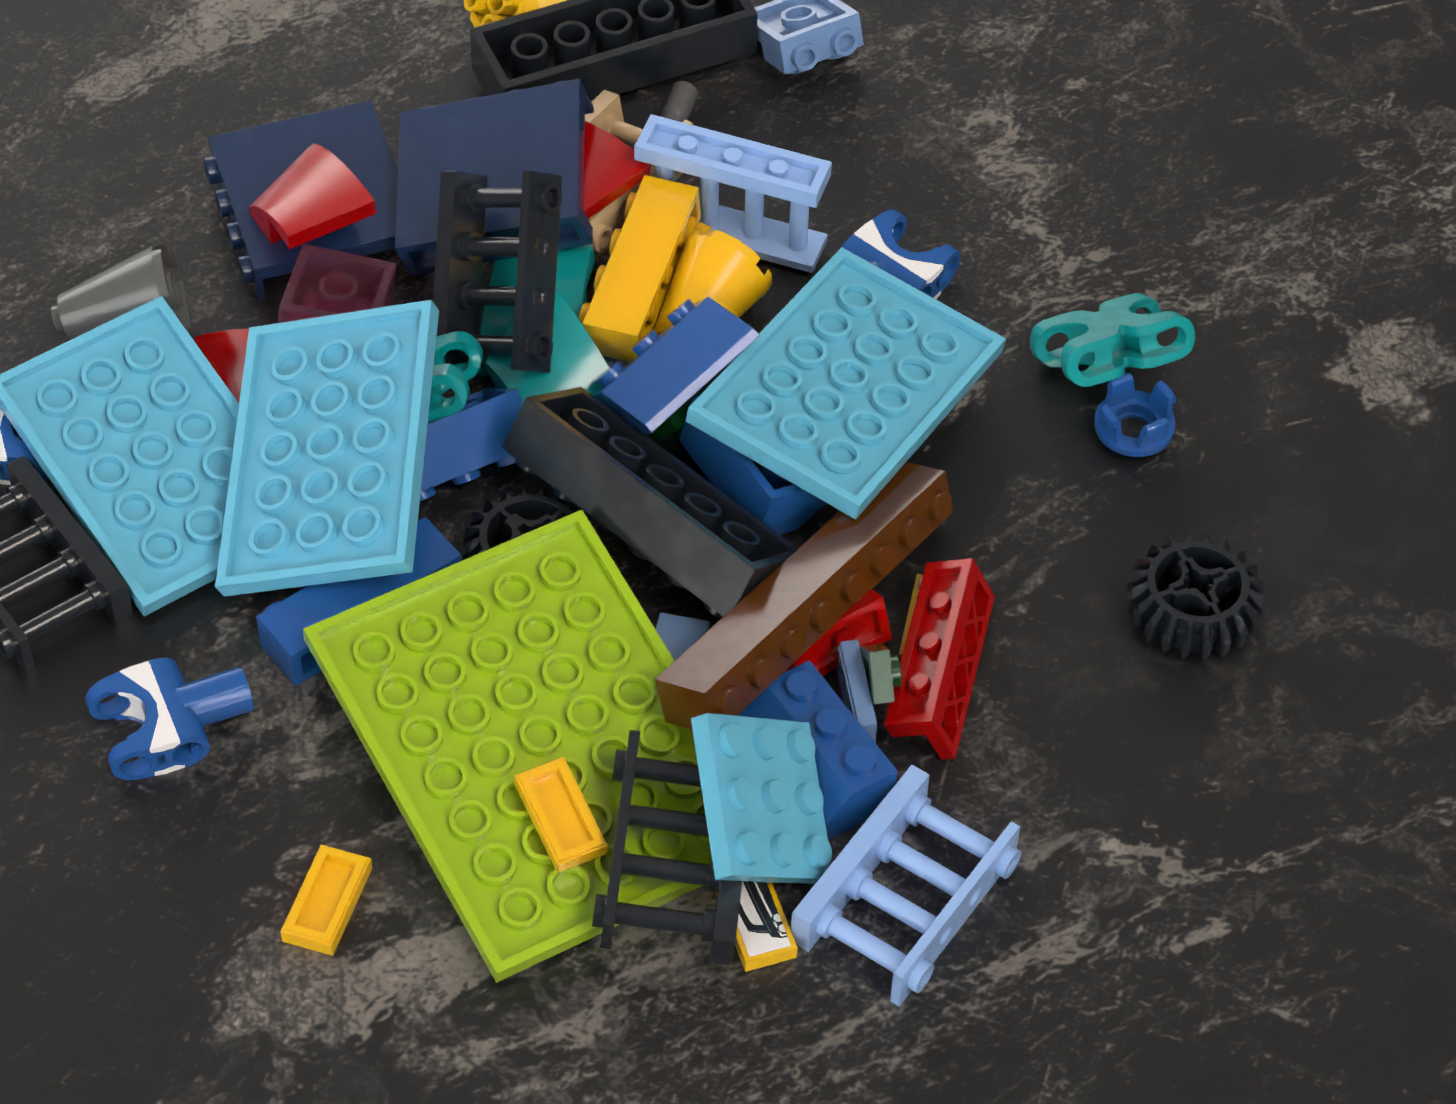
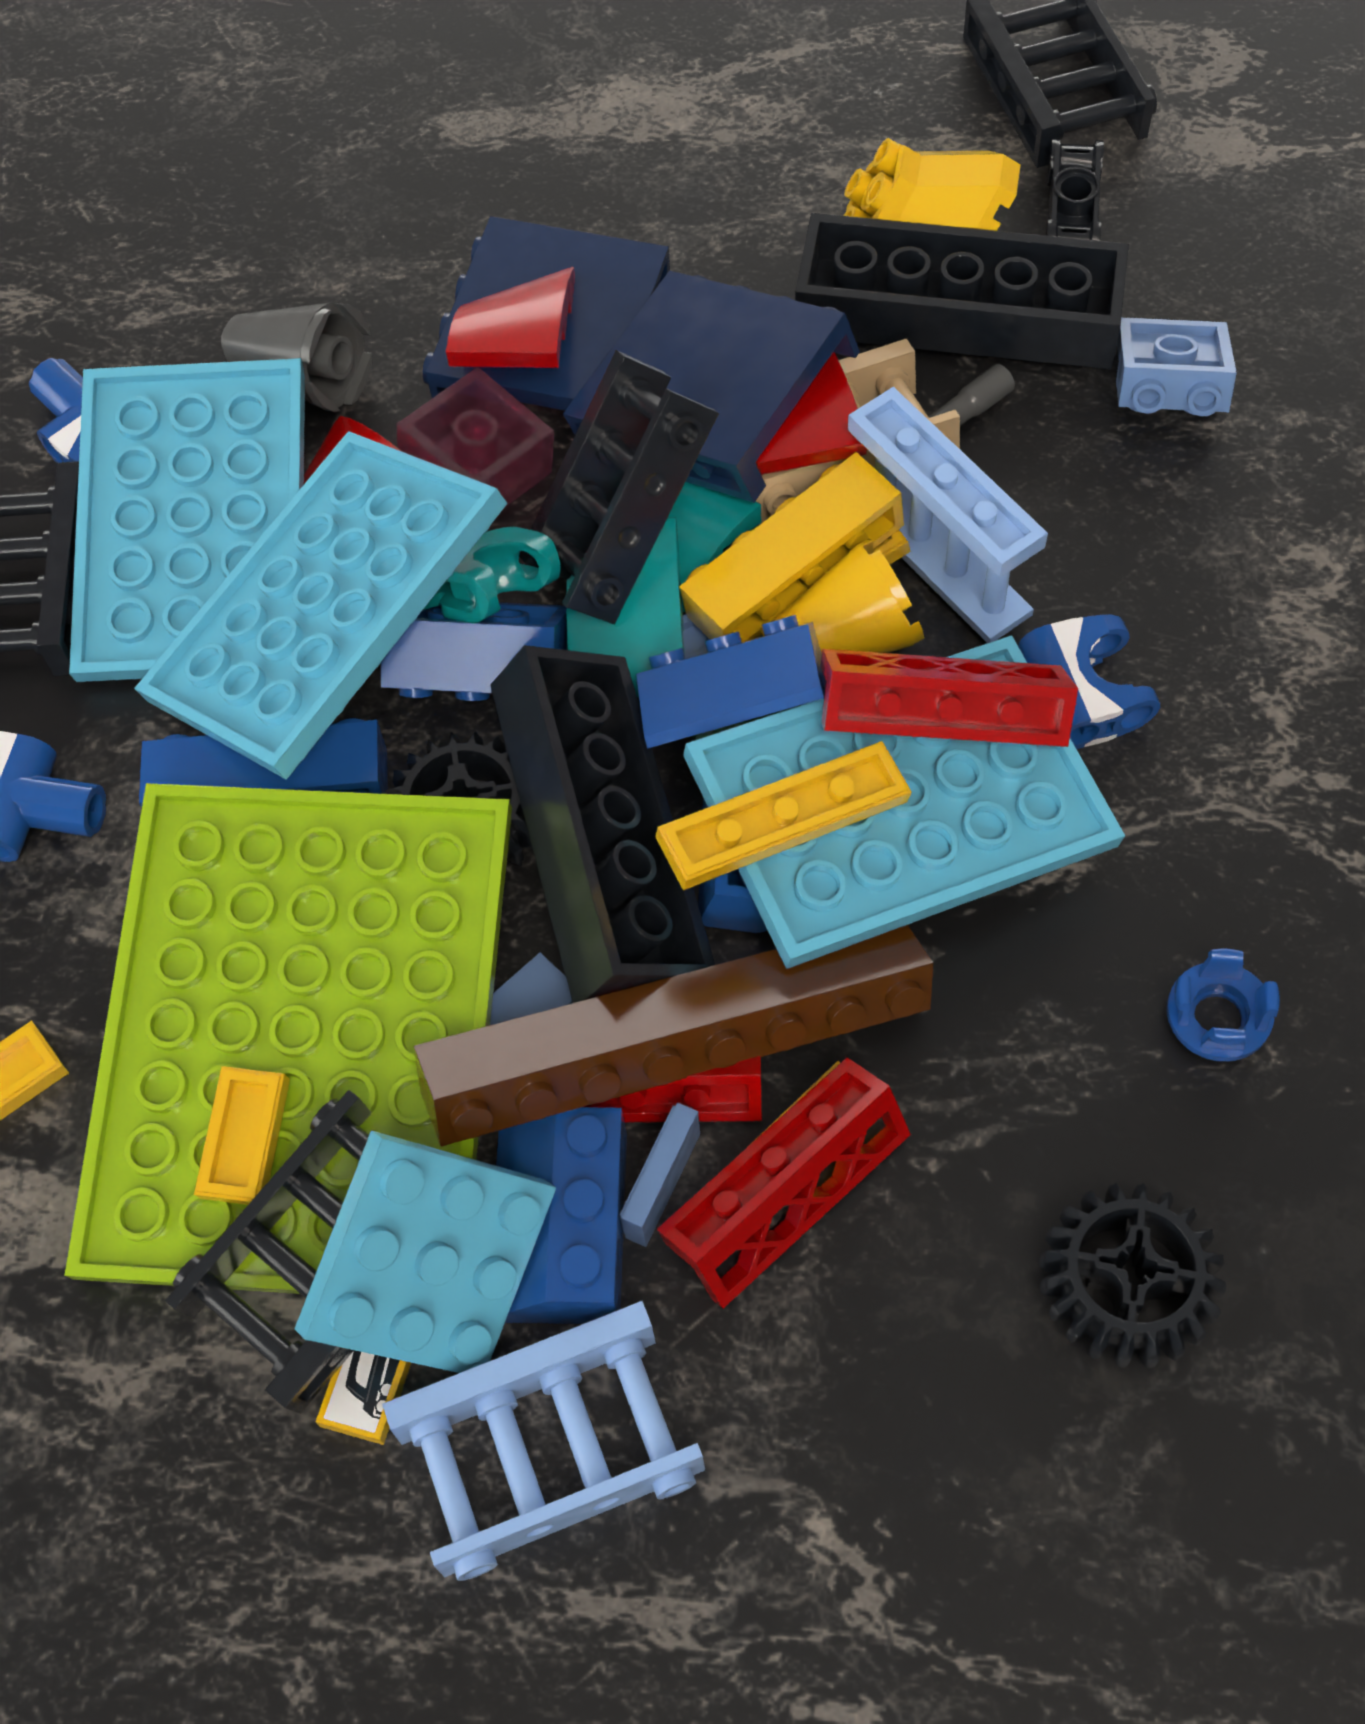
camera: 40 degrees right, 10 degrees up
(788, 420) = (782, 815): none -> yellow tile
(837, 300) = (947, 698): none -> red fence
(882, 672) = (689, 1164): plate -> none
(1112, 339) = (1254, 900): teal piece -> none

